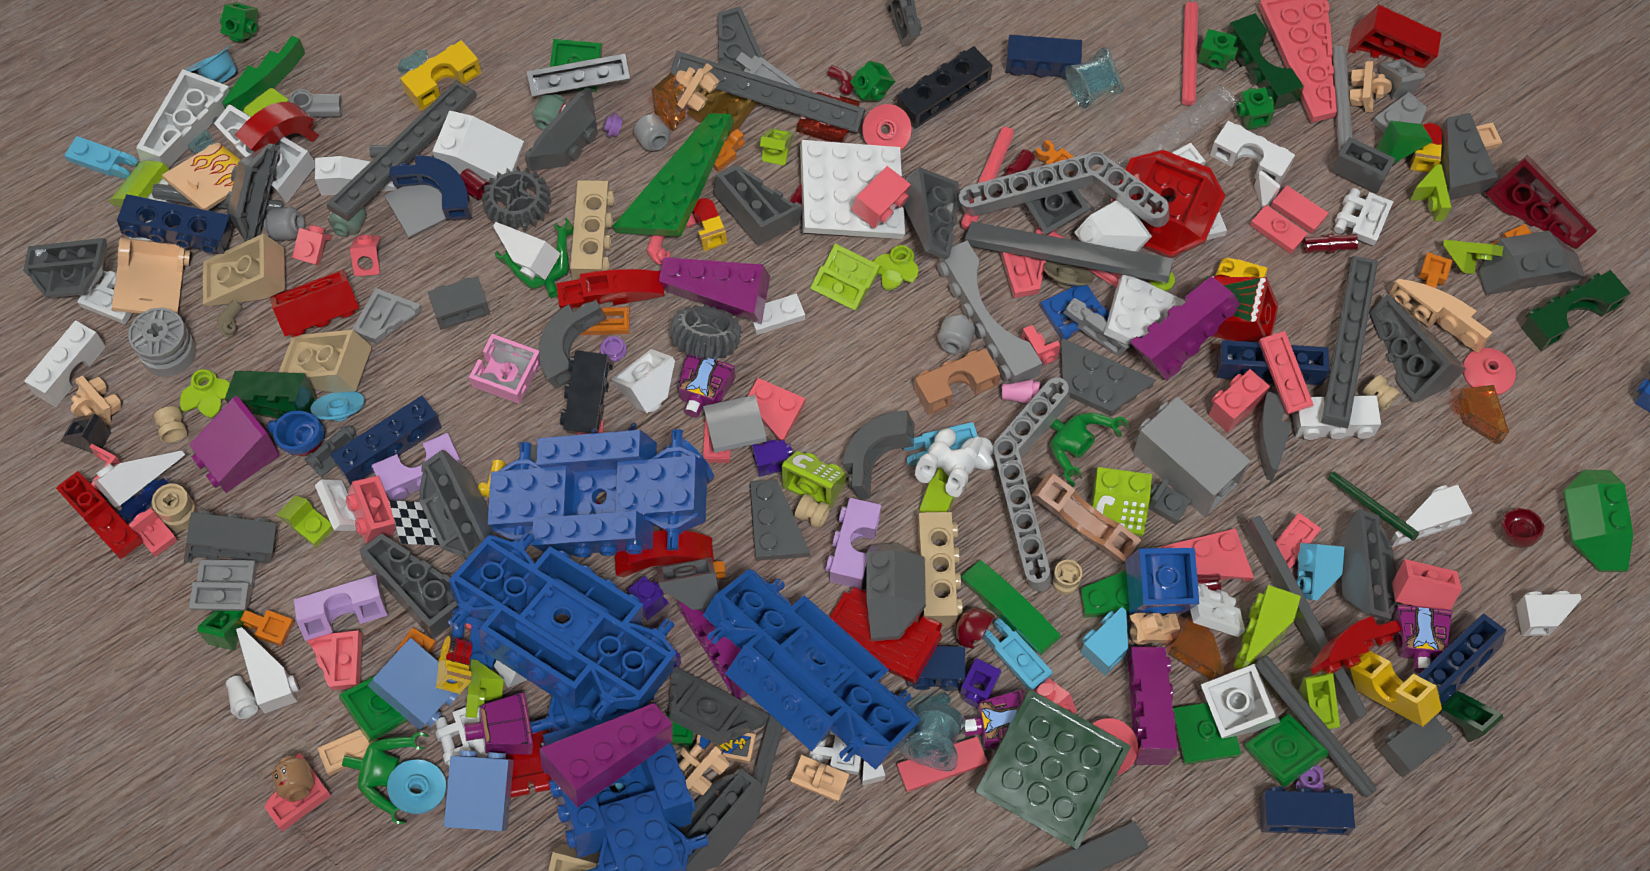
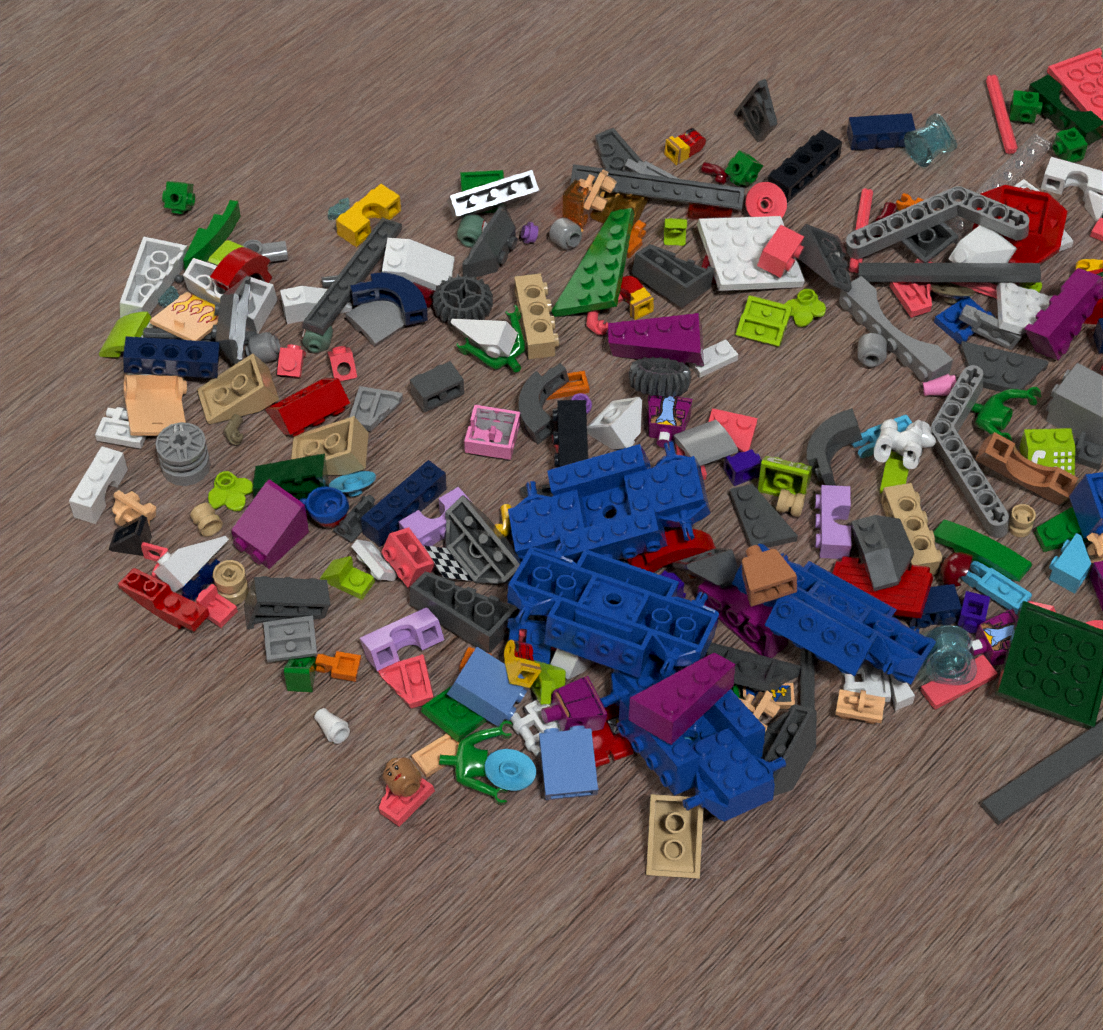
camera: 10 degrees left, 10 degrees down
(66, 266) = (81, 405): dark grey wedge -> none
(99, 158) = (82, 321): medium azure hinge -> none
(217, 67) = (170, 232): medium azure piece -> none
(268, 678) = (350, 702): white slope -> none
(617, 285) = (571, 353): red slope -> none
(728, 624) = (767, 575): none -> nougat torso
(815, 40) = (684, 145): none -> leg
(974, 369) = (895, 375): nougat arch -> none
(1046, 353) = (953, 351): coral bracket -> none

